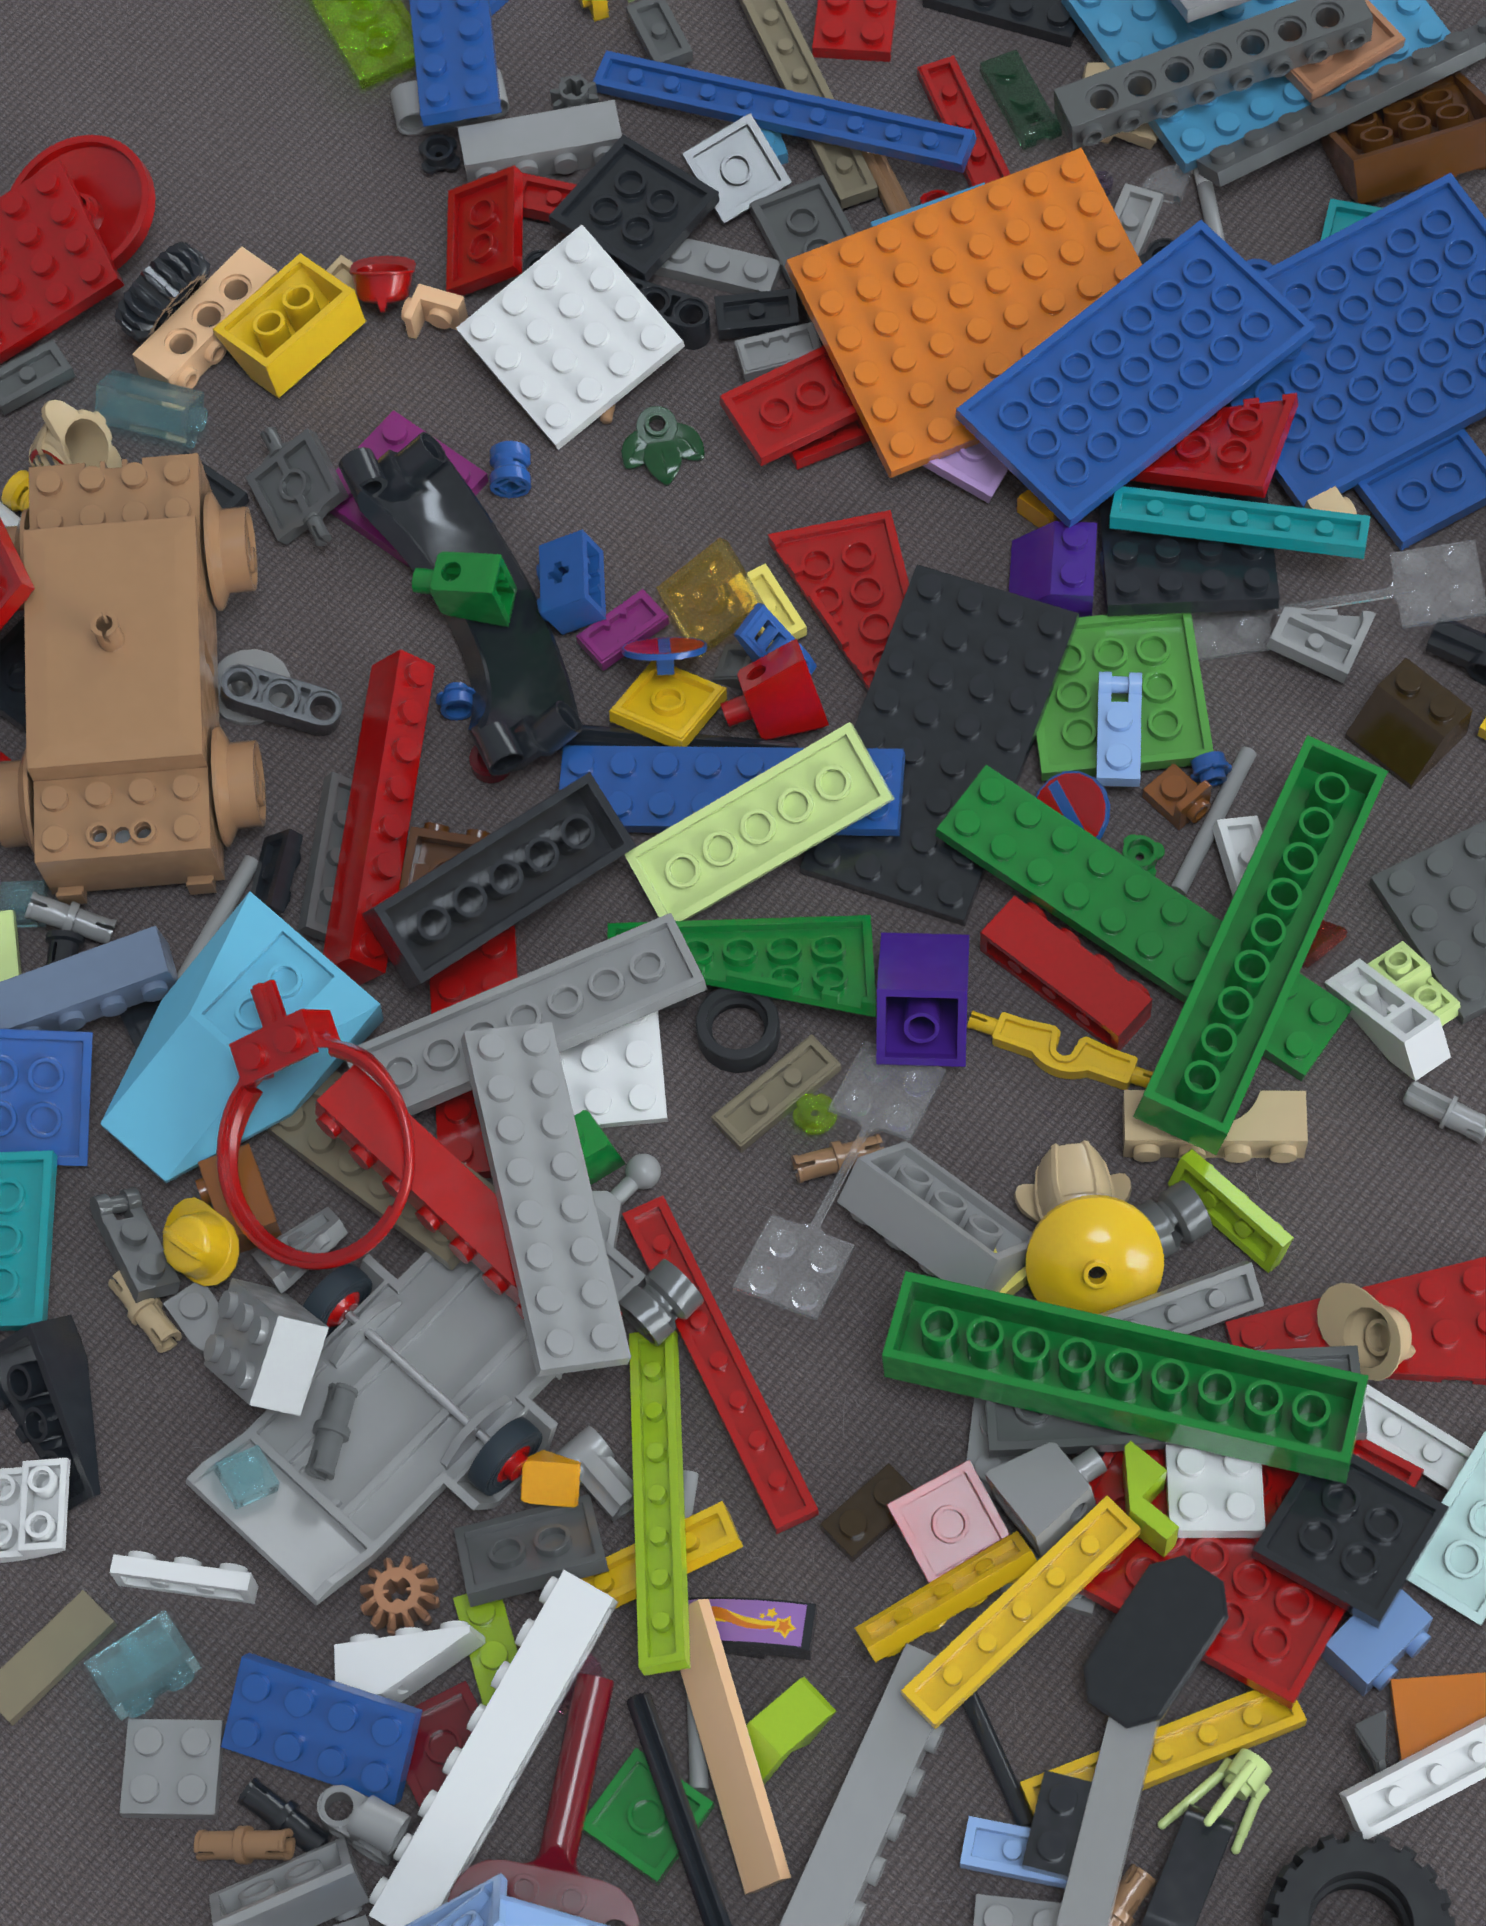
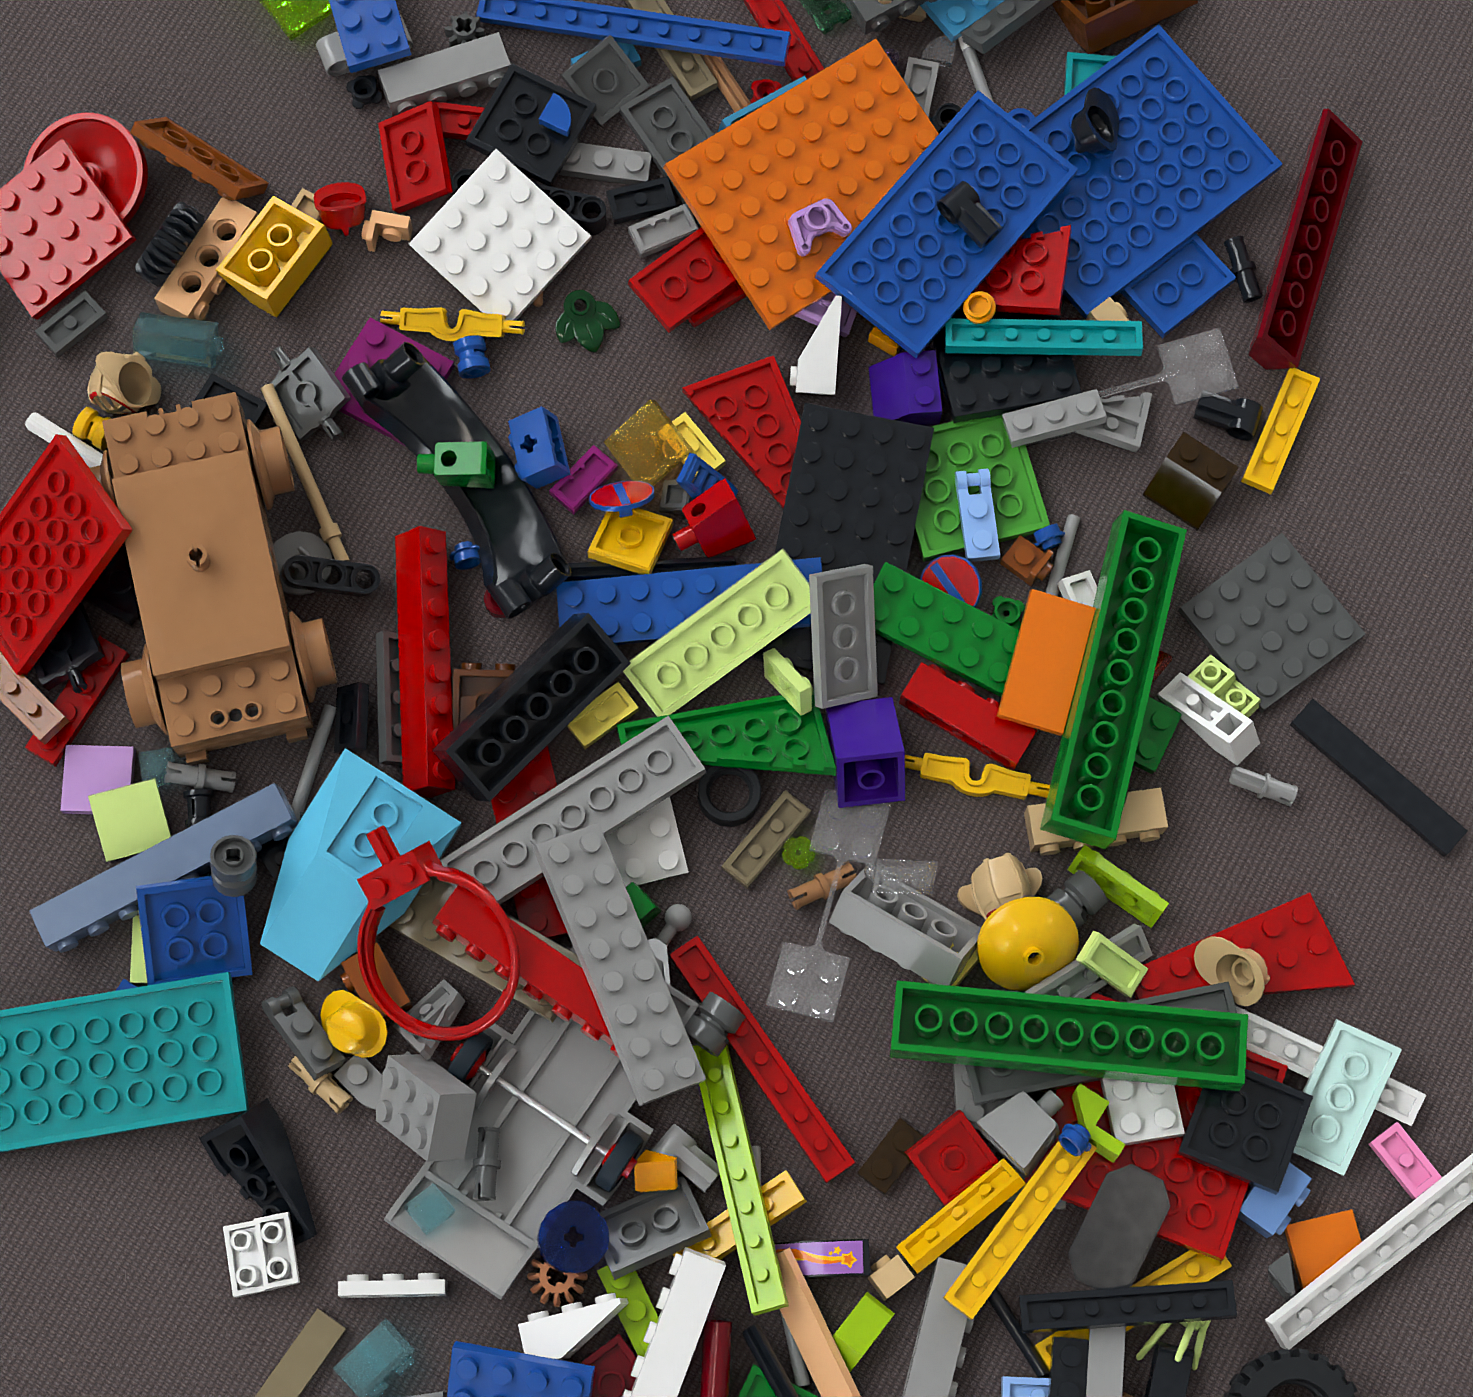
camera: 20 degrees left, 10 degrees up
(81, 1013) = (233, 865): none -> dark grey wheel
(223, 206) = (198, 157): none -> dark orange plate
(292, 650) = (329, 531): none -> tan bar
(408, 1519) = (558, 1222): none -> clear blue plate
(473, 424) = (436, 322): none -> yellow piece
(590, 911) = (602, 715): none -> light yellow plate
(665, 198) = (556, 115): none -> blue tile
(837, 897) = (788, 681): none -> yellowish green plate
(839, 1663) = (889, 1276): none -> tan plate
(913, 843) = (843, 635): none -> light grey plate
(943, 1155) = (902, 876): none -> clear hinge
(947, 517) = (818, 362): none -> white slope
(966, 350) = (815, 221): none -> lavender piece
(1111, 1509) = (1075, 1139): none -> blue plate
(1150, 1743) = (1127, 1306): none -> black plate
(1159, 352) = (964, 208): none -> black piece
(1160, 475) = (979, 307): none -> light orange plate
(1175, 912) = (1046, 662): none -> orange tile
(1202, 1301) = (1111, 964): none -> yellowish green tile
(1239, 623) = (1054, 418): none -> light grey plate
(1348, 276) = (1096, 124): none -> black piece

